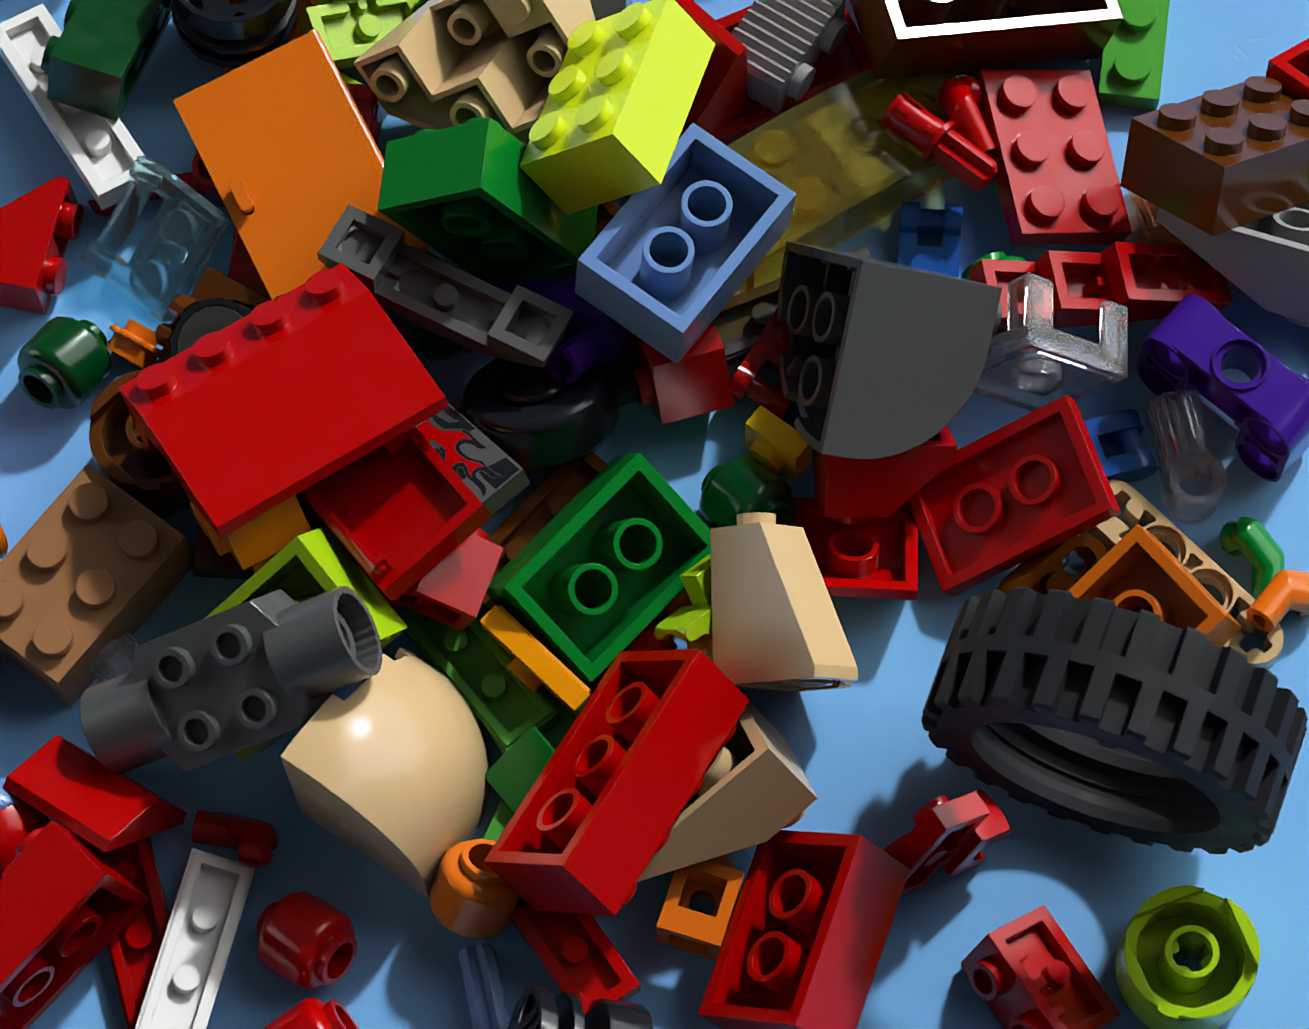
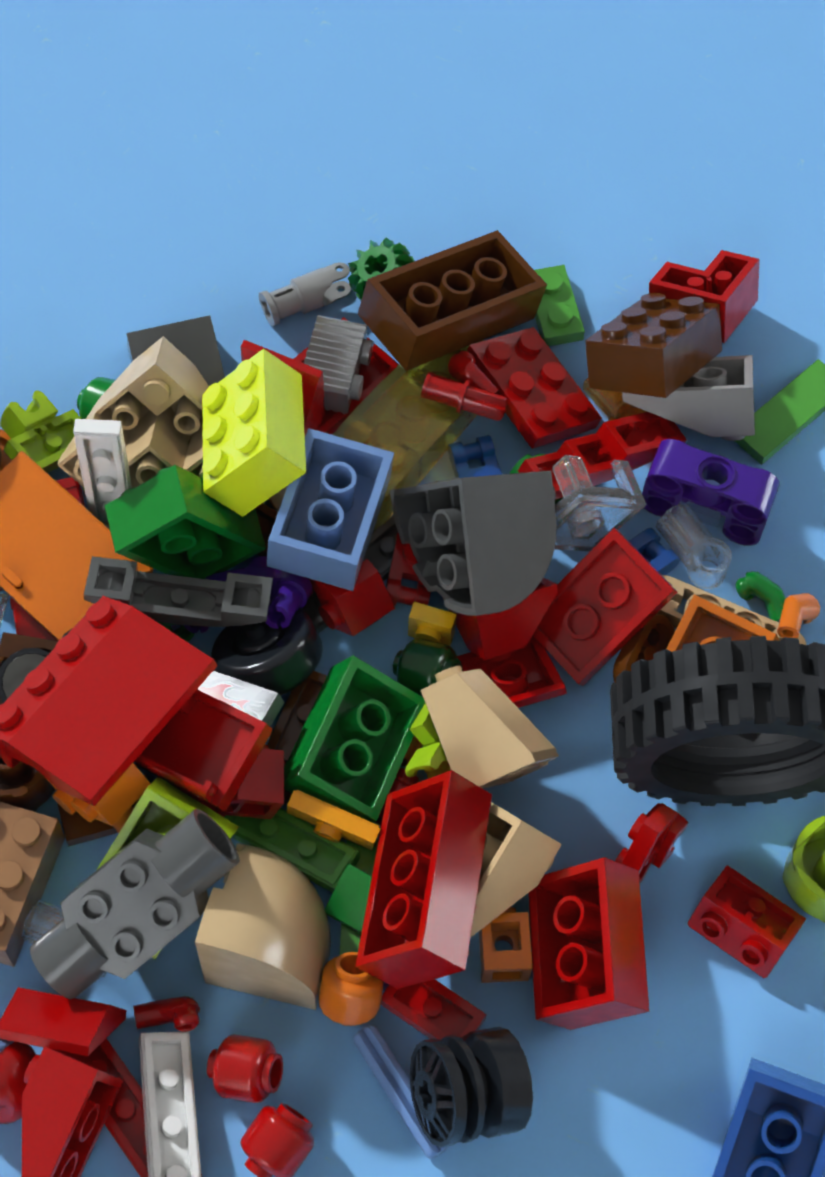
camera: 25 degrees left, 5 degrees down
(404, 80) = (102, 463): none -> white tile

